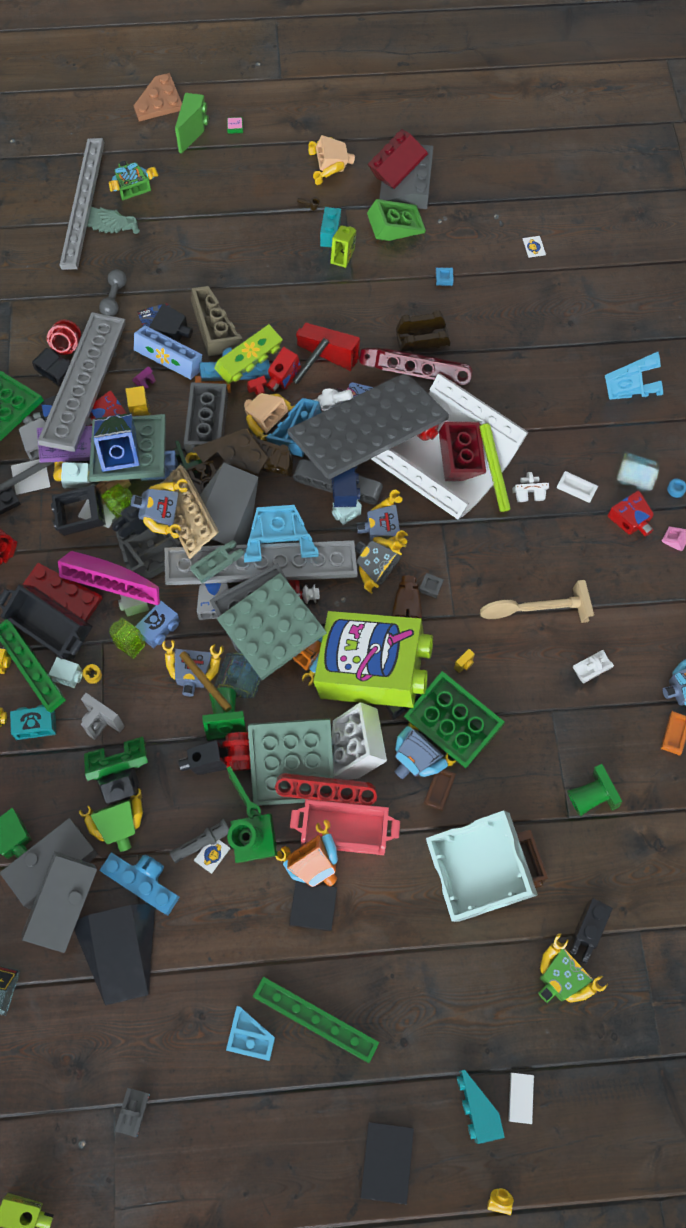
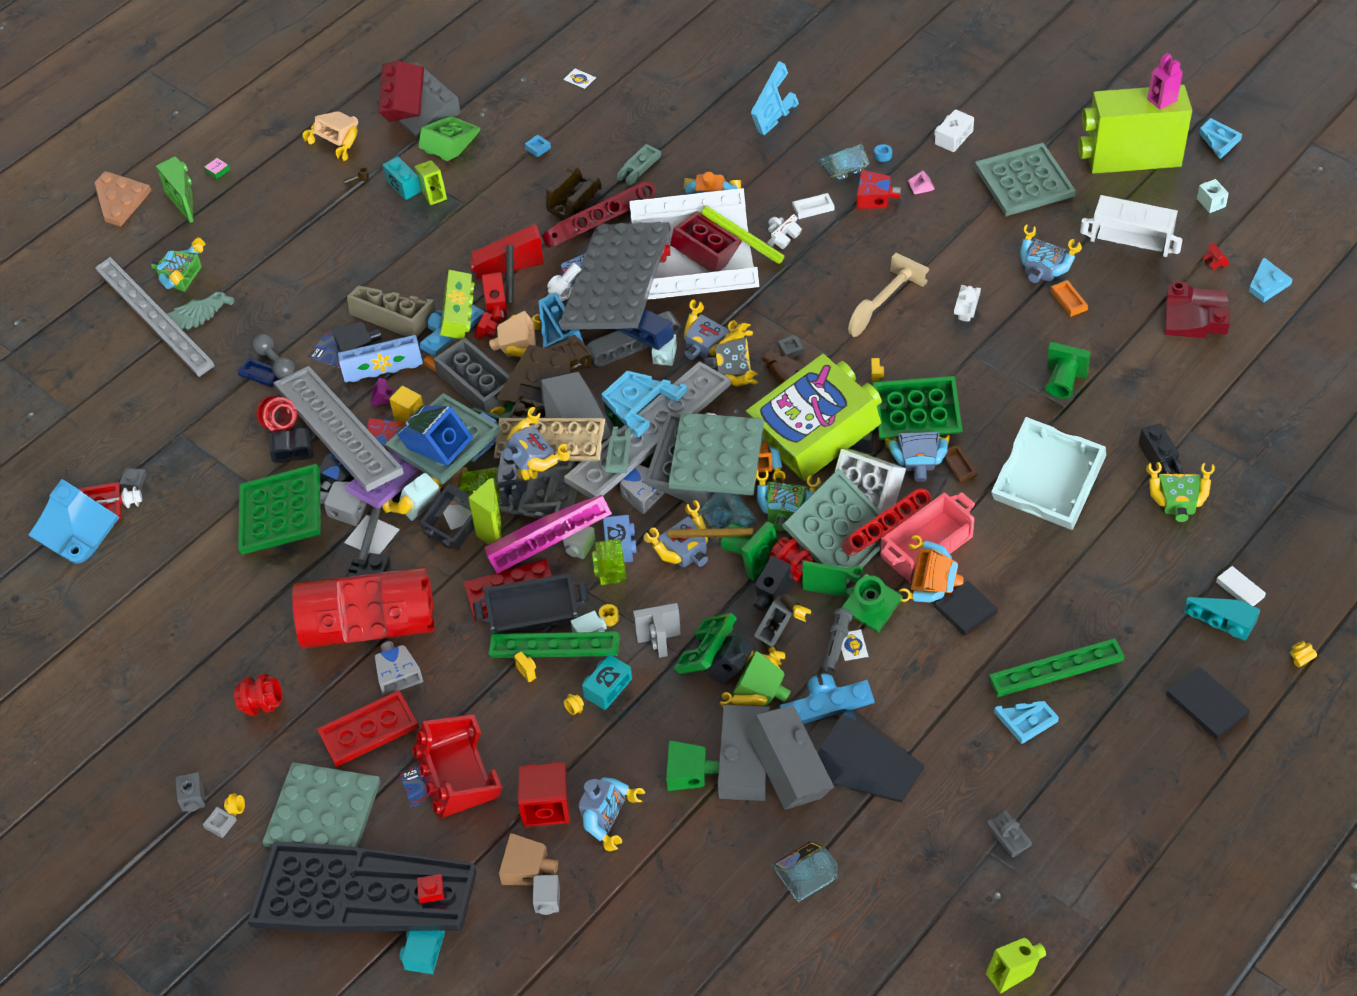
camera: 40 degrees left, 15 degrees down
(93, 530) = (486, 512): none -> lime slope
(96, 295) = (258, 372): none -> clear blue tile
(172, 789) = (776, 621): none -> torso
(287, 701) = (782, 499): none -> torso
(494, 348) = (638, 164): none -> sand green hinge
(517, 412) = (709, 183): none -> torso

